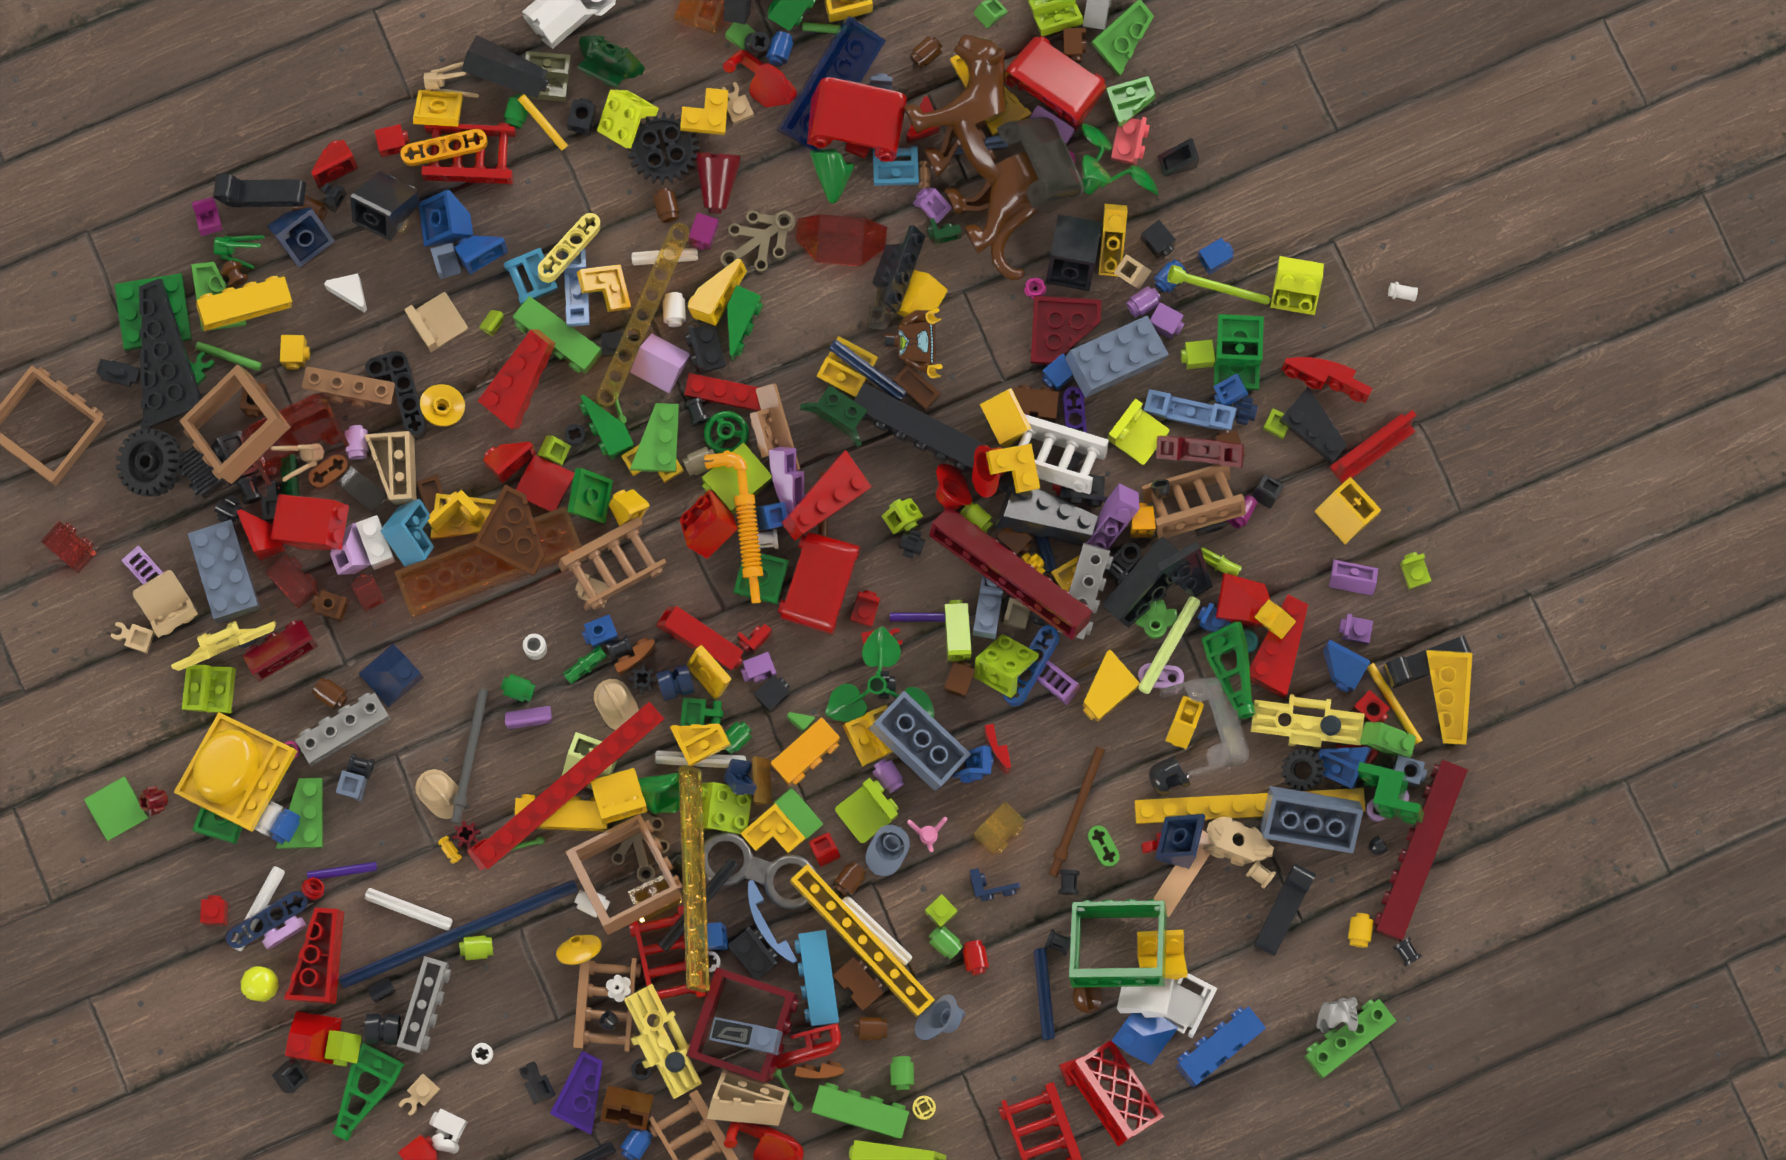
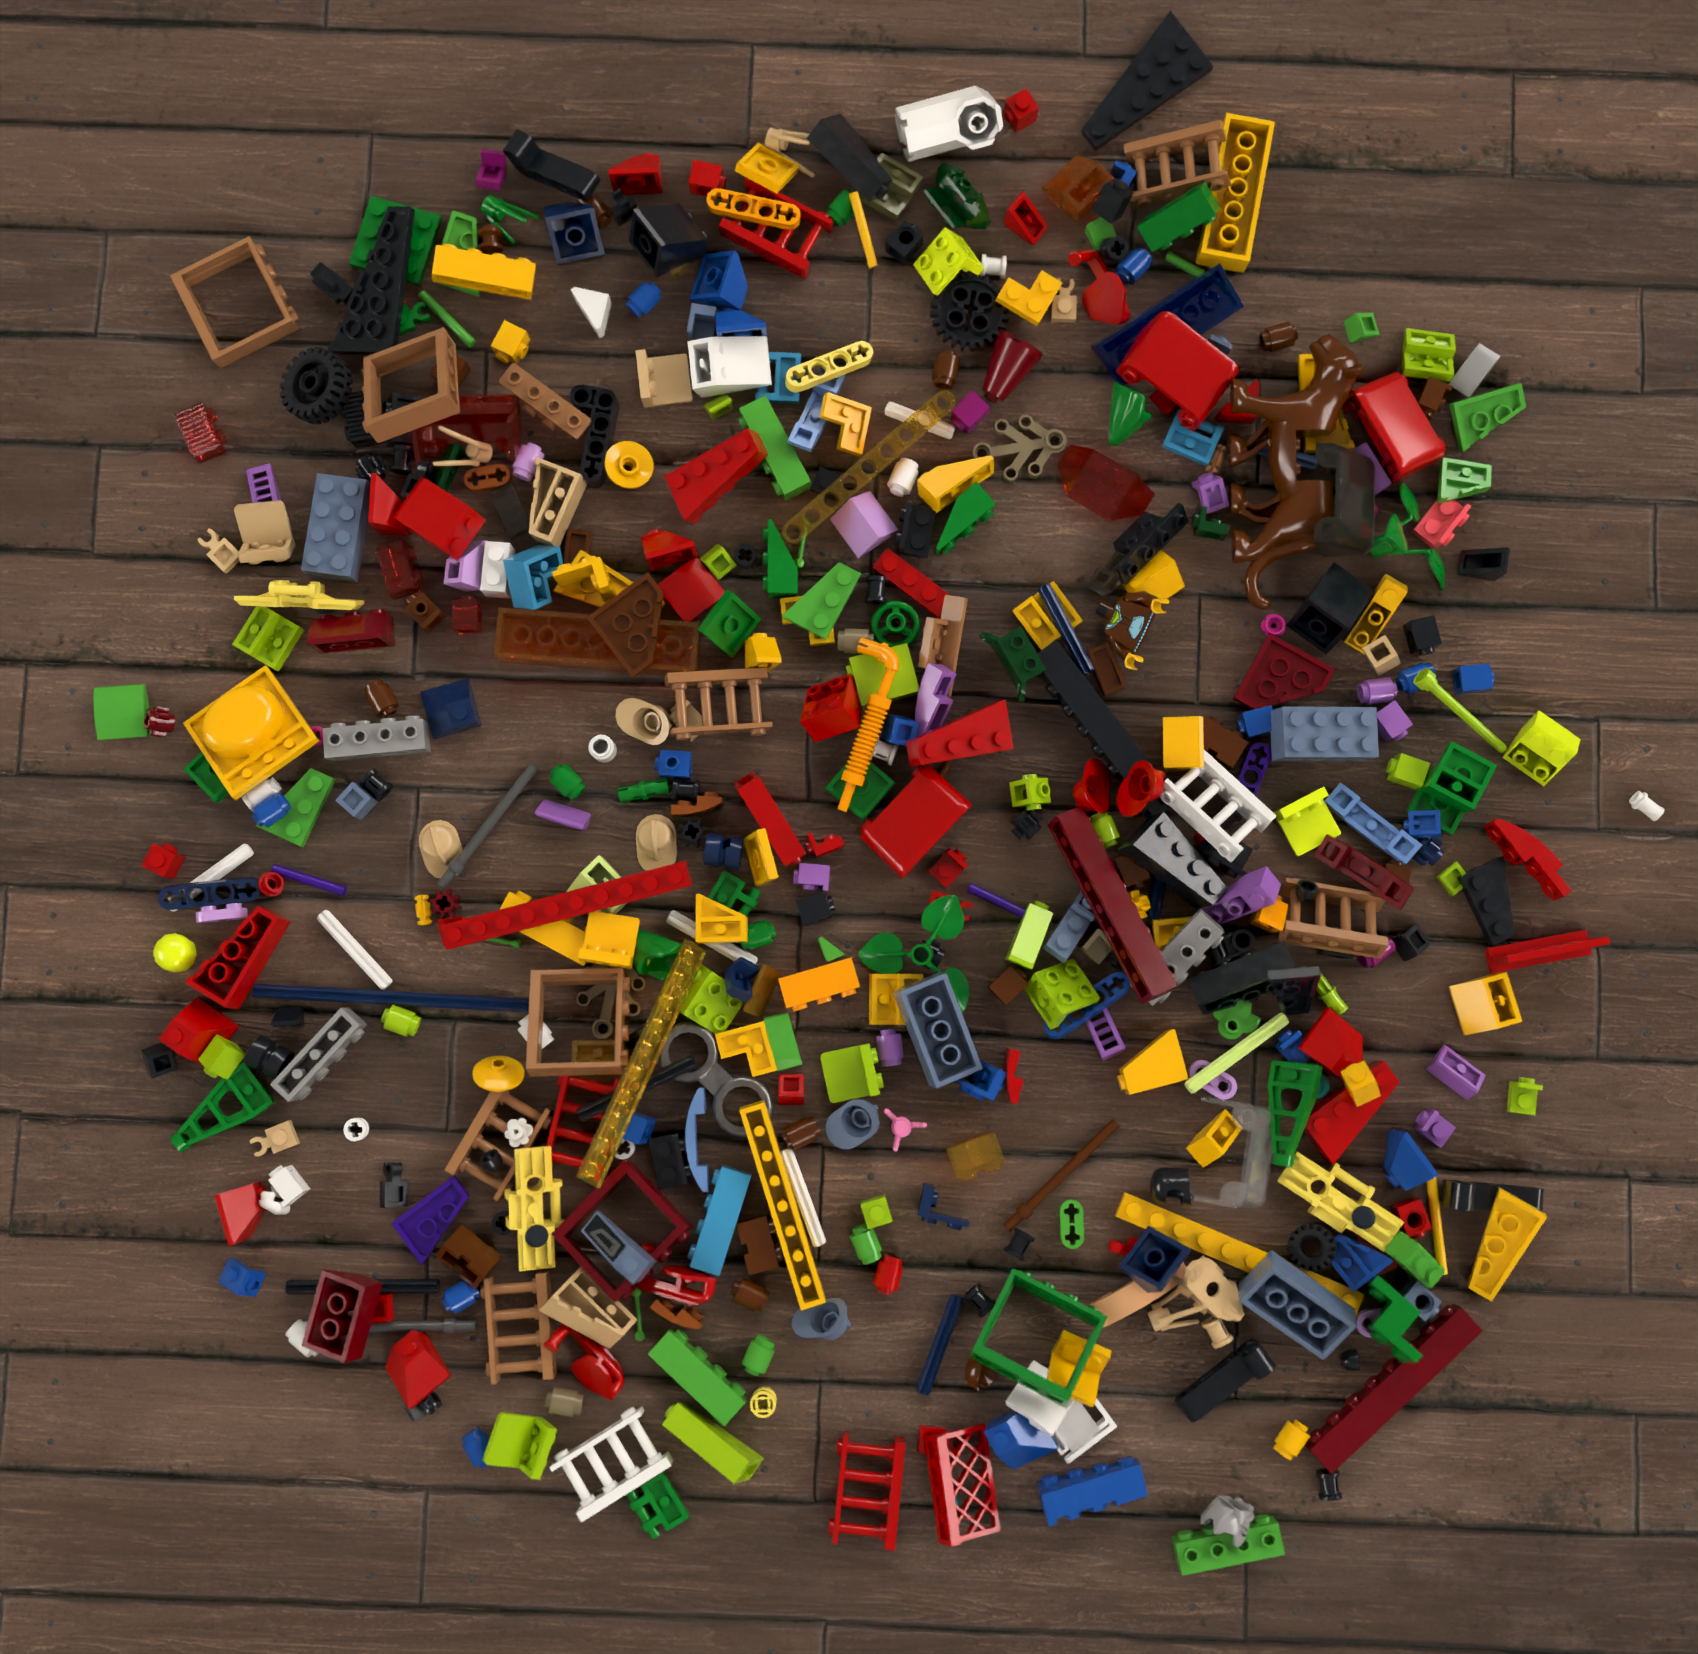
camera: 30 degrees right, 5 degrees up
(387, 263) = (643, 298): none -> blue brick
(486, 284) = (728, 364): none -> white slope
(557, 608) = (643, 720): none -> tan piece
(664, 101) = (993, 266): none -> white bush
(673, 52) = (1025, 219): none -> red slope
(1019, 461) = (1177, 799): yellow plate -> none
(1211, 885) = (1162, 1319): none -> tan plant

